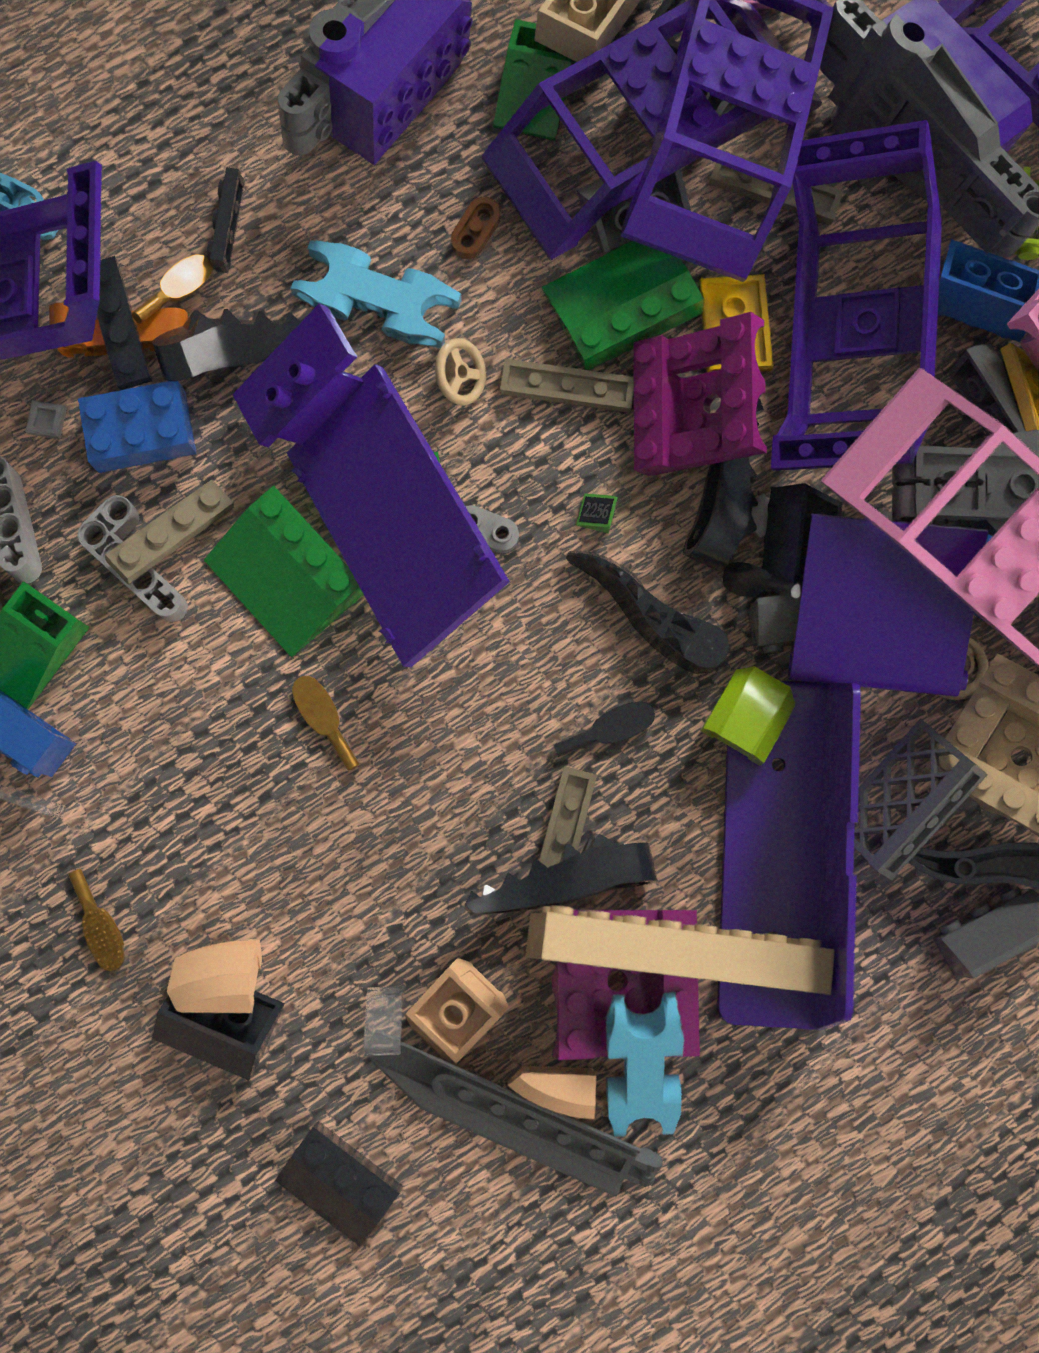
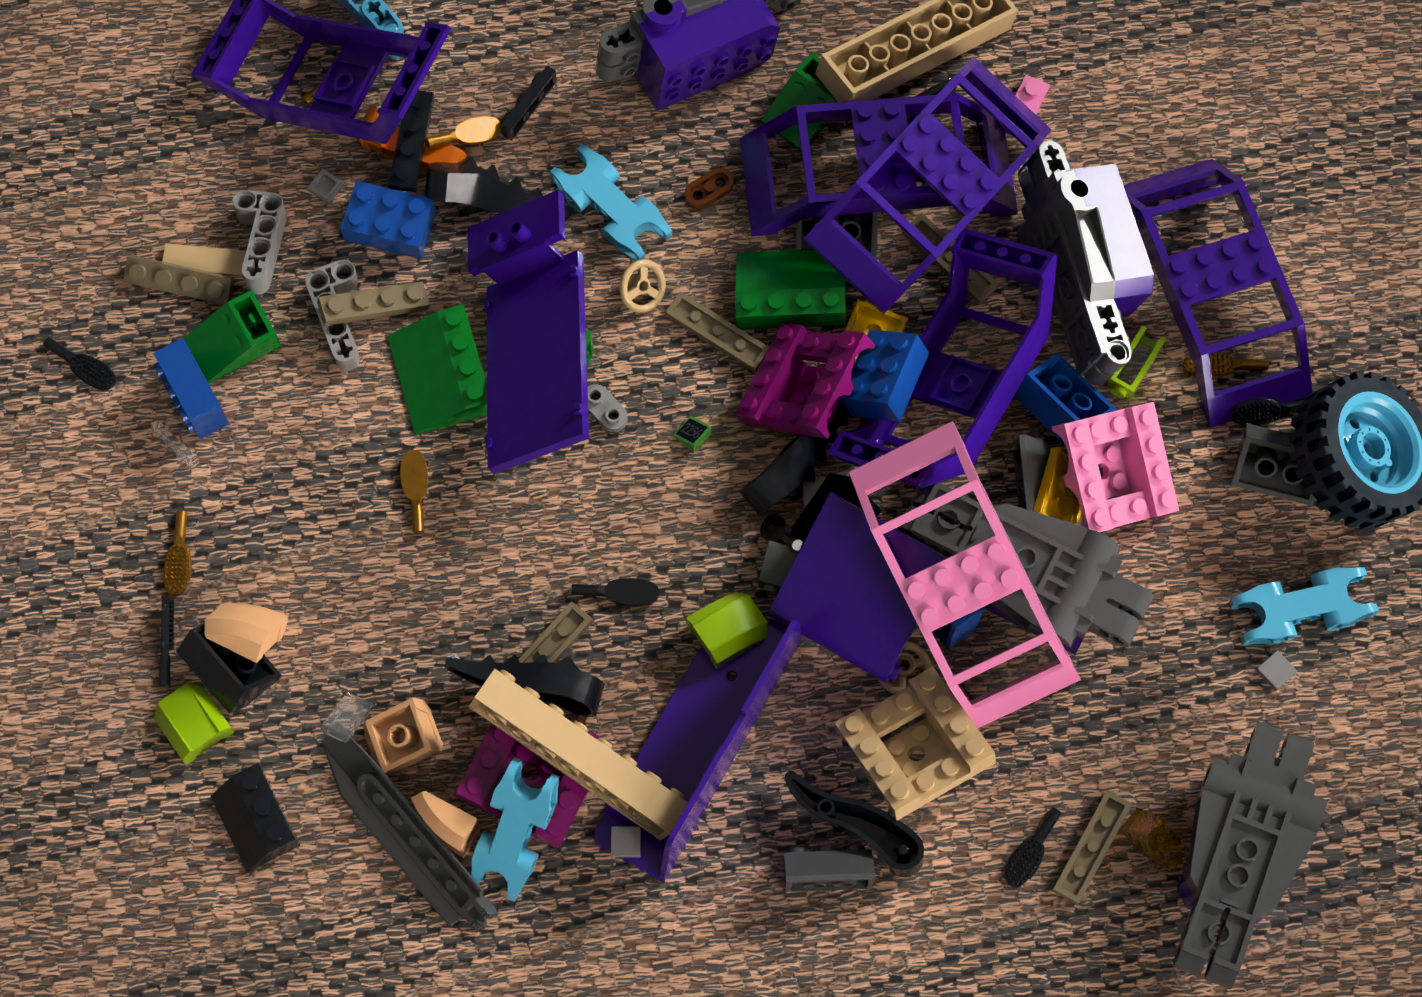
camera: 25 degrees right, 10 degrees down
(142, 1050) = (167, 639): none -> black piece
(209, 1107) = (191, 721): none -> lime slope
(677, 636) = (705, 549): black animal -> none
(761, 1009) = (625, 841): none -> light grey tile
(789, 349) = (885, 375): none -> blue brick
(931, 811) = (815, 749): dark grey fence -> none

